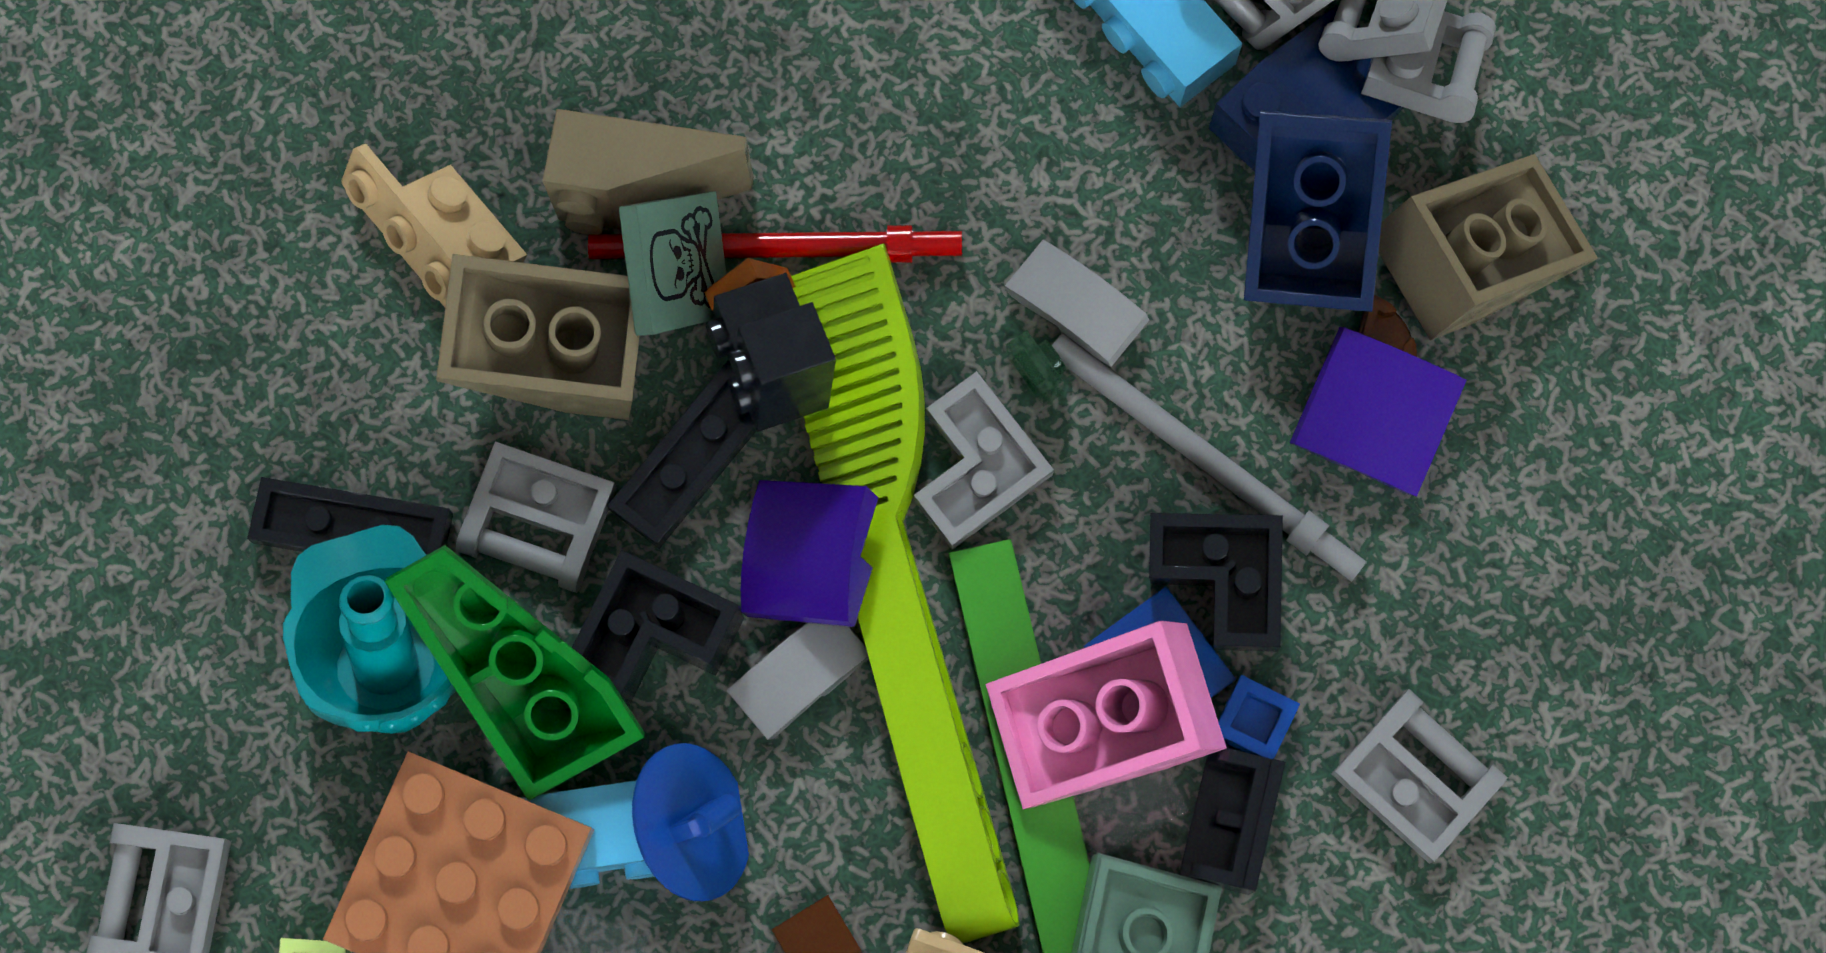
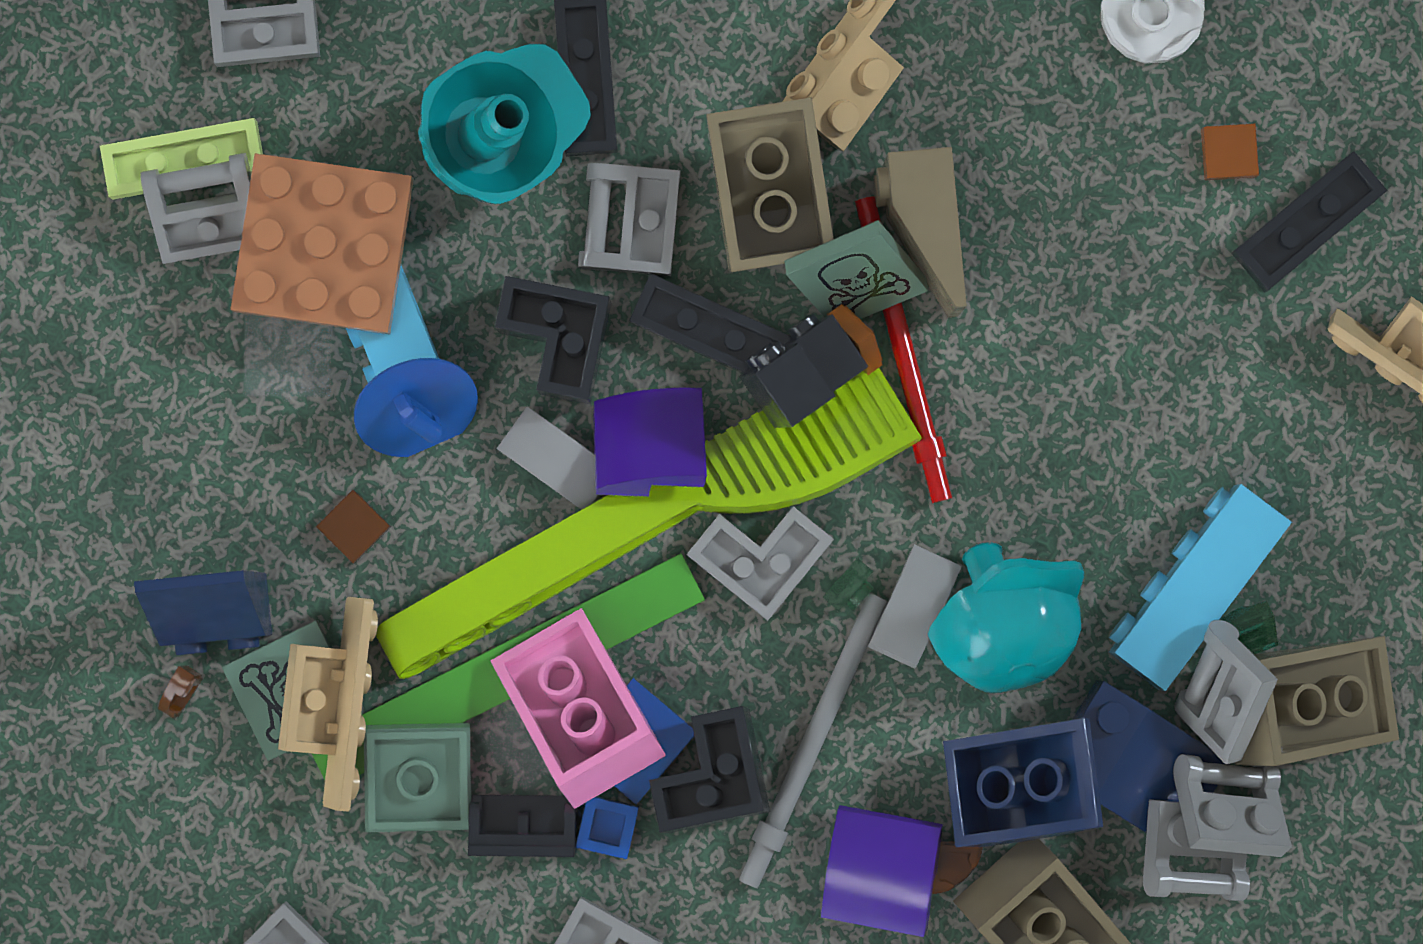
camera: 75 degrees right, 10 degrees up
(521, 682) = (480, 248): green wedge -> none
(1123, 188) = (1011, 622): none -> teal piece

